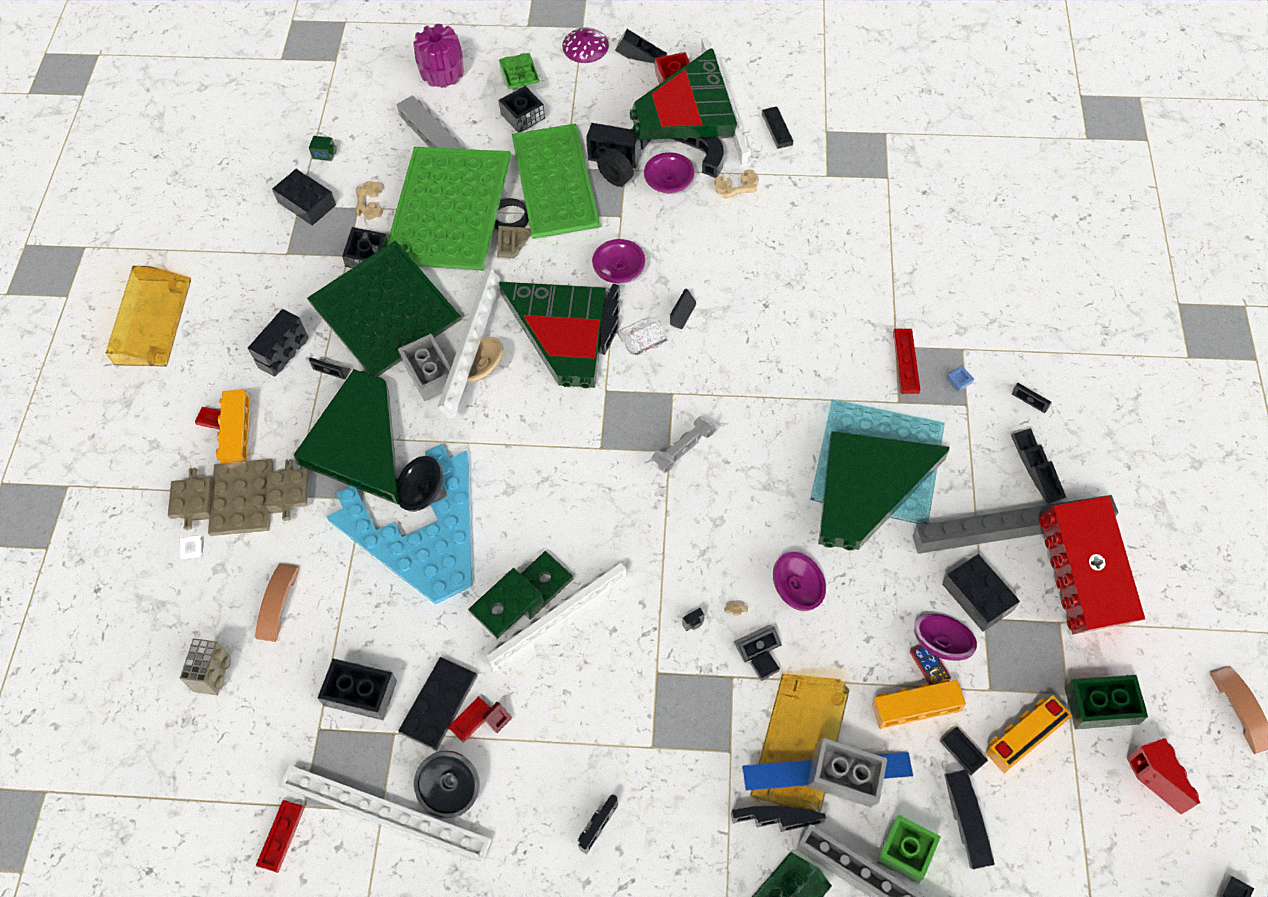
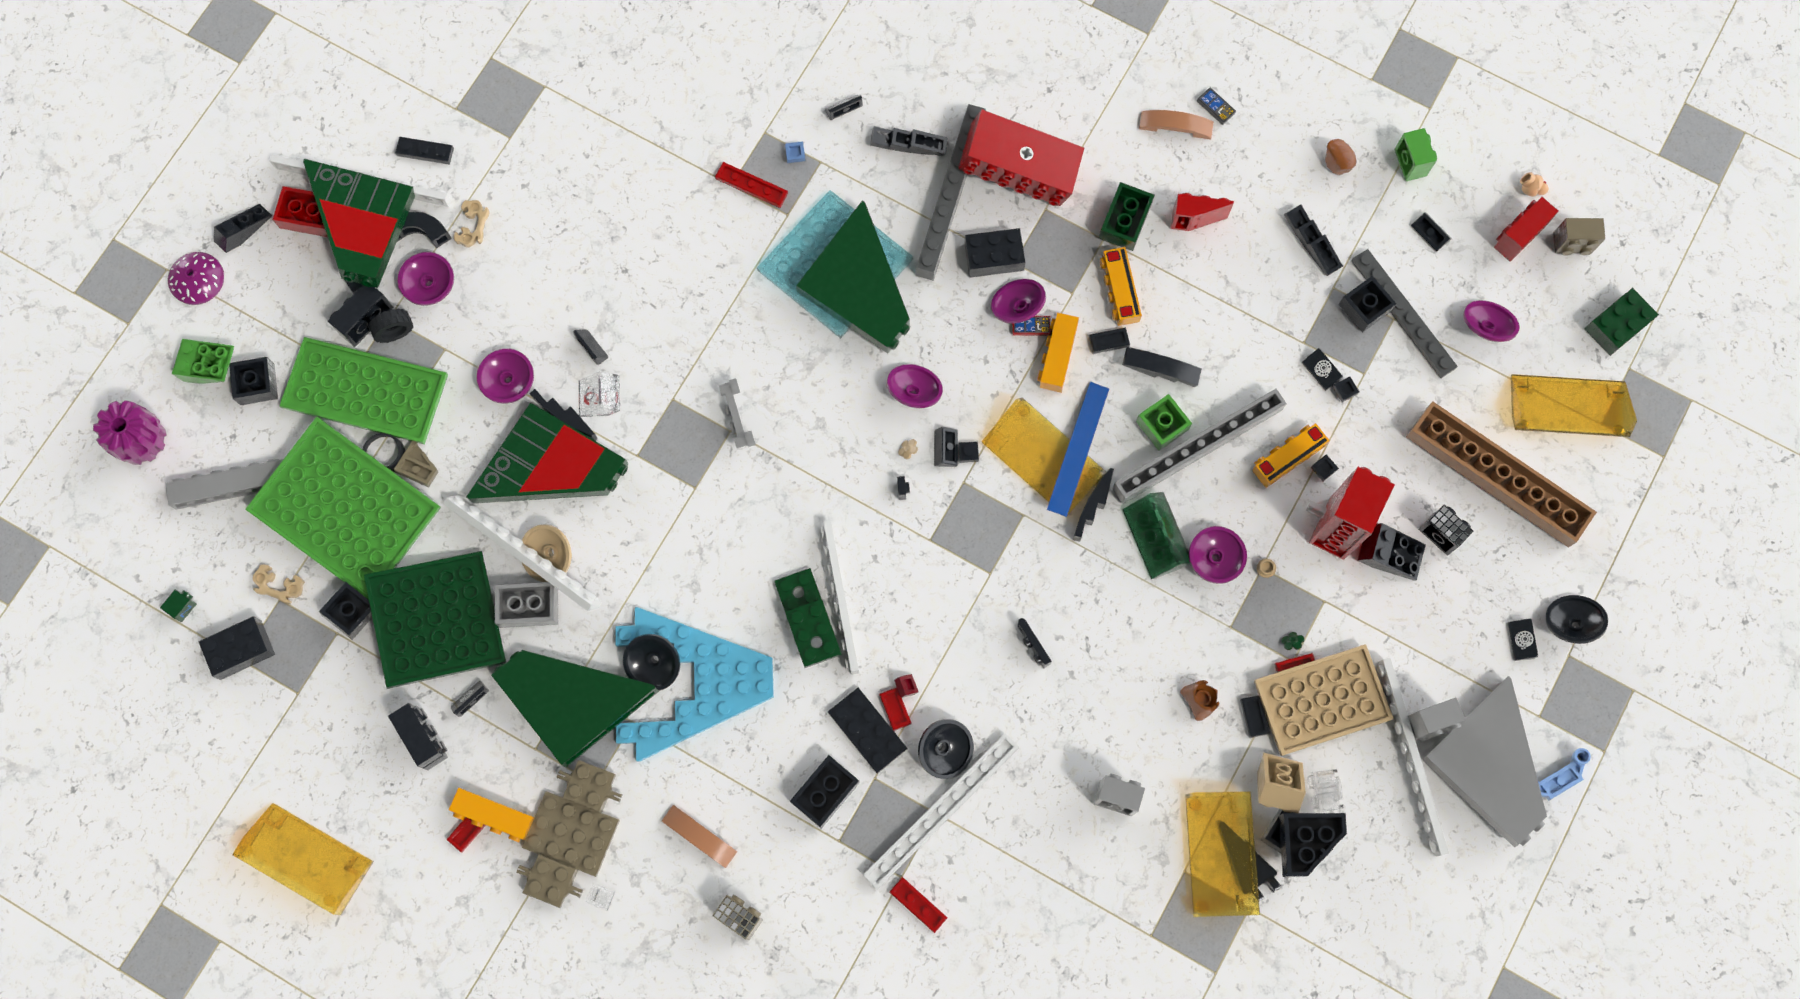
camera: 65 degrees left, 15 degrees up
(847, 772) = (1090, 434): light grey brick -> none

